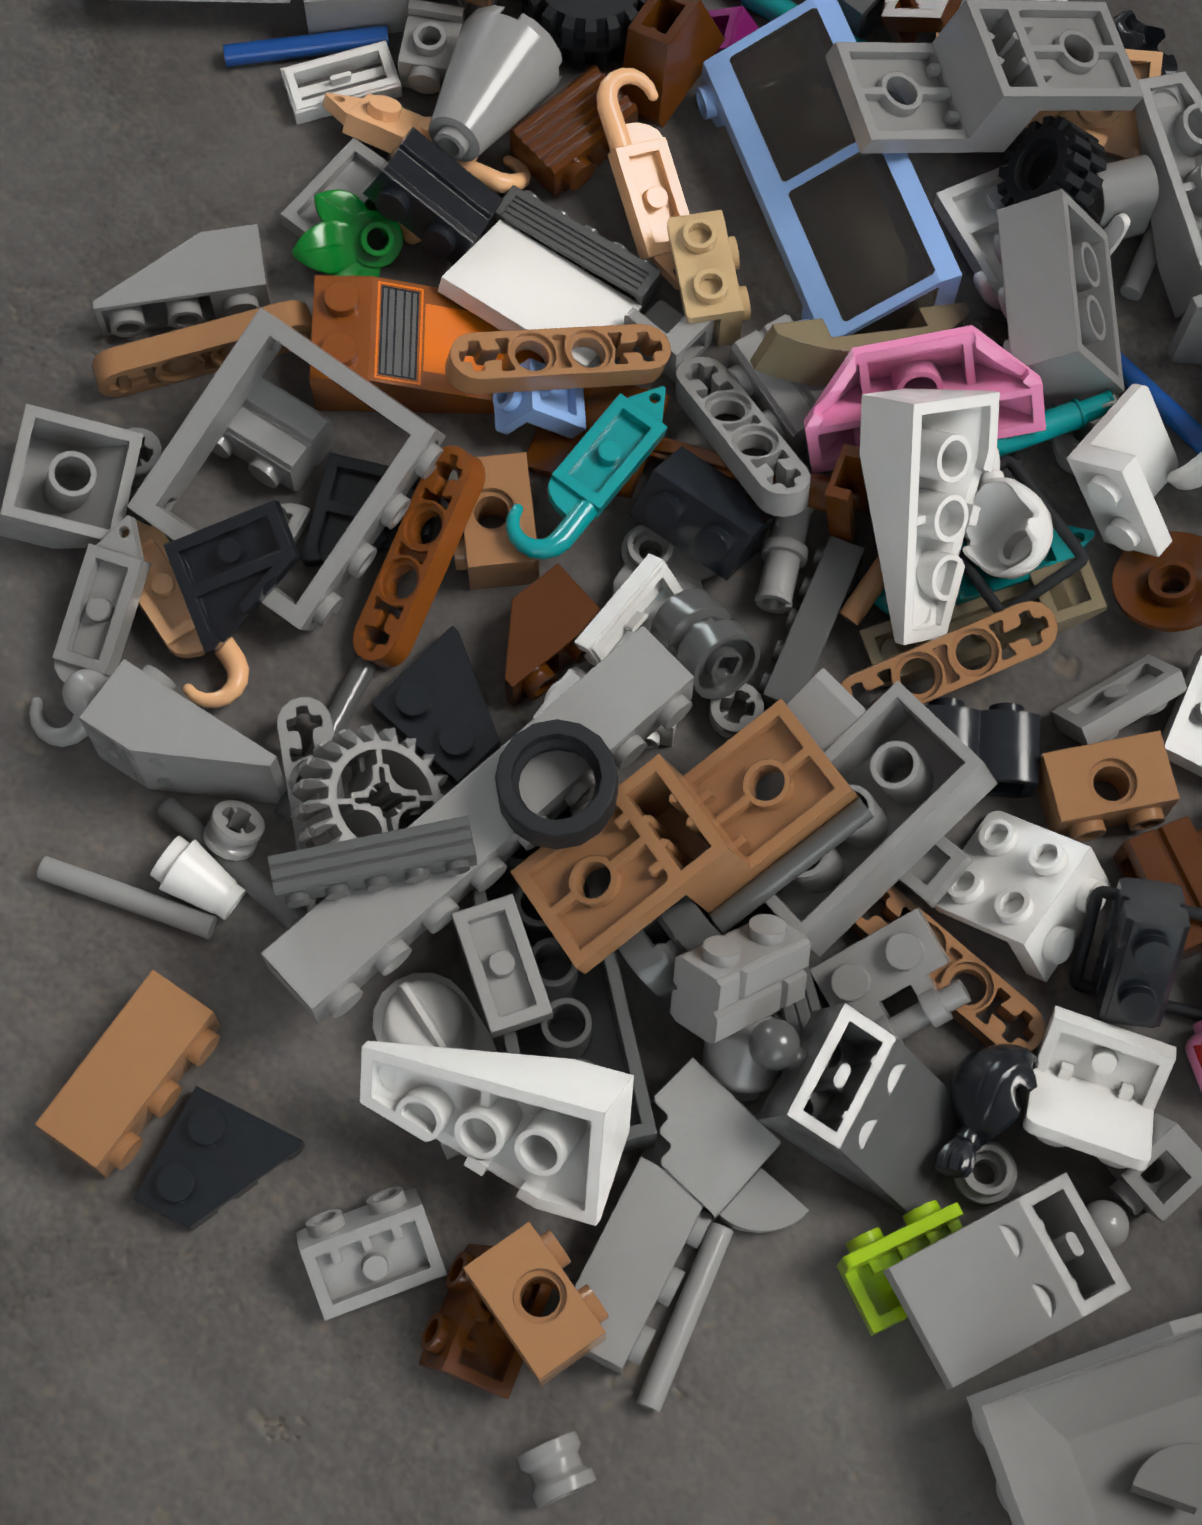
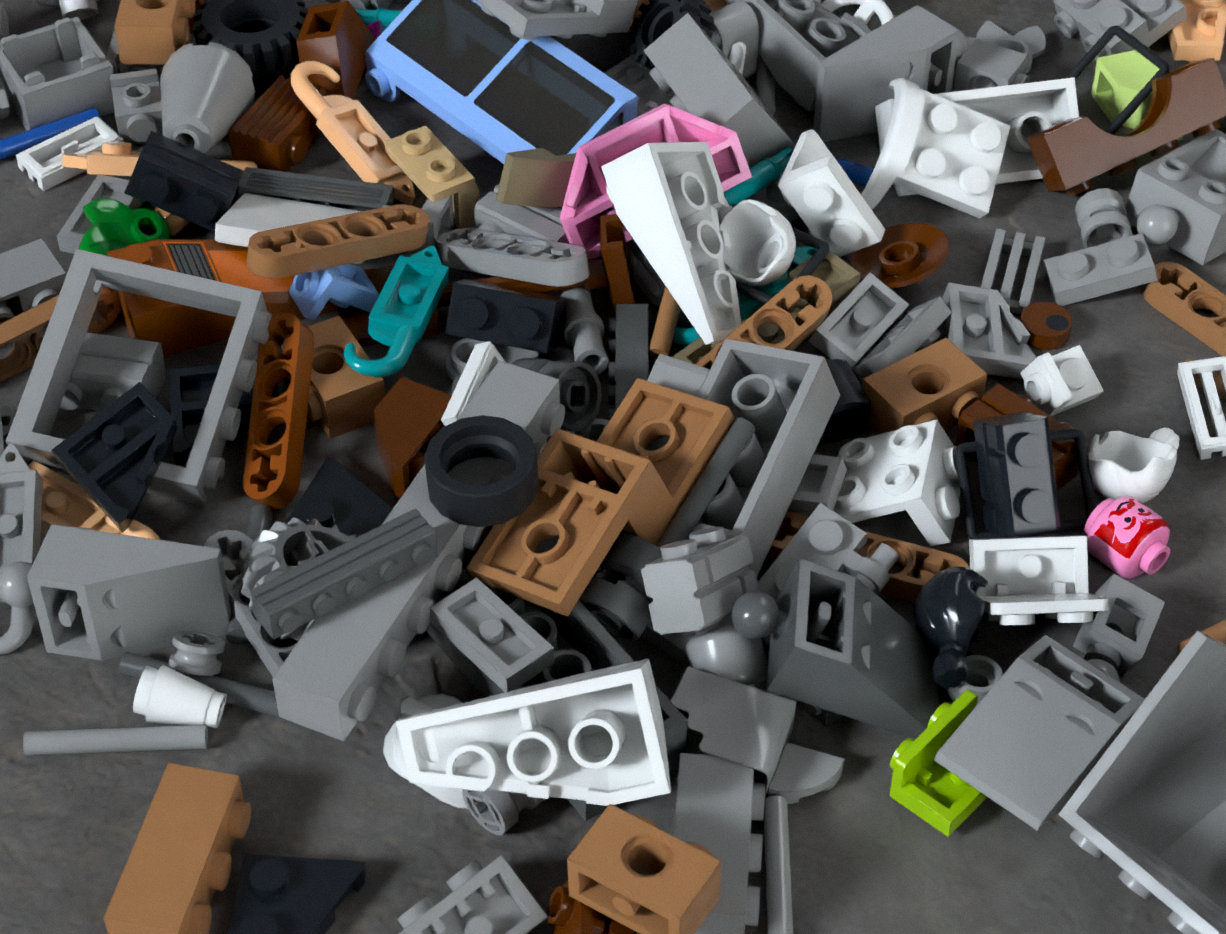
camera: 20 degrees left, 25 degrees down
(1085, 657) = (859, 321): none -> light grey plate

